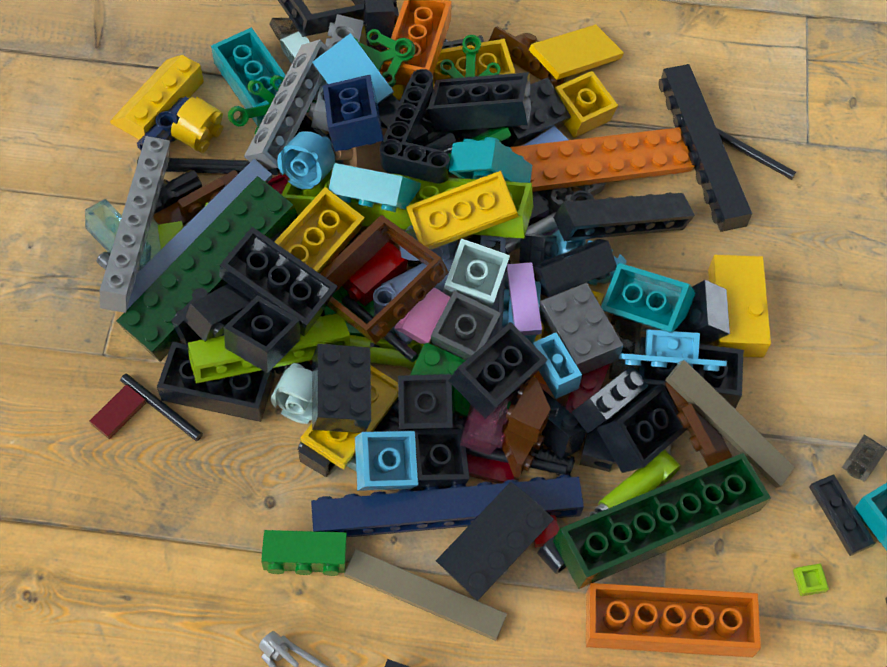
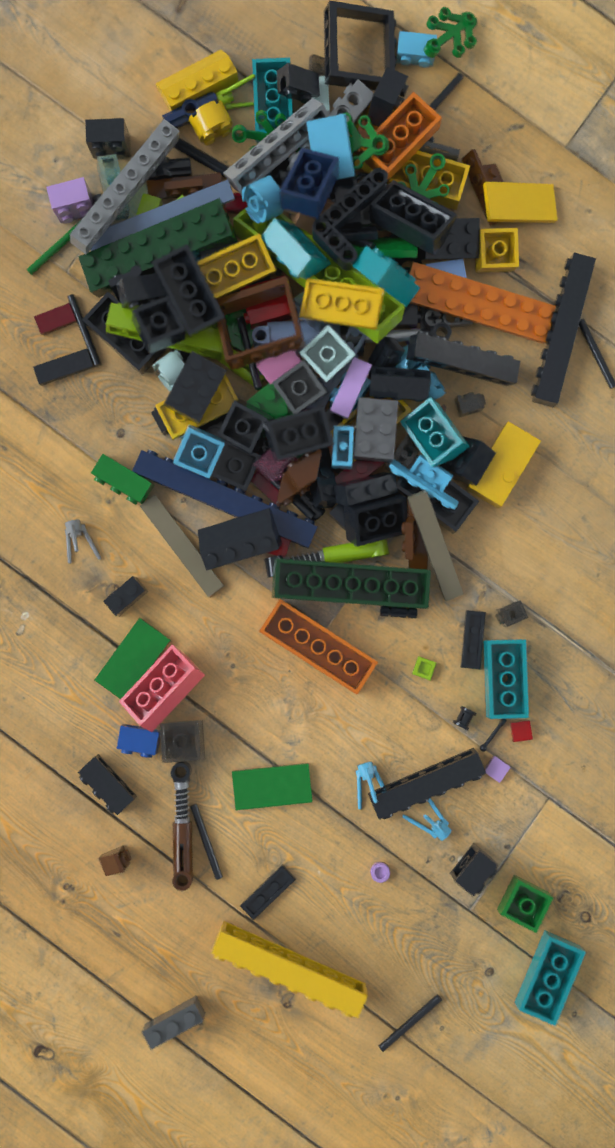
camera: 30 degrees right, 25 degrees up
(74, 270) = (70, 199): none -> lavender brick
(77, 335) = (50, 252): none -> green bar
(84, 187) = (108, 137): none -> black brick
(156, 460) = (63, 367): none -> black tile
(201, 93) = (226, 96): none -> lime plant
(275, 42) = (297, 83): none -> black brick
(659, 261) = (469, 403): none -> clear smoke brick
(735, 529) = (401, 612): none -> black axle

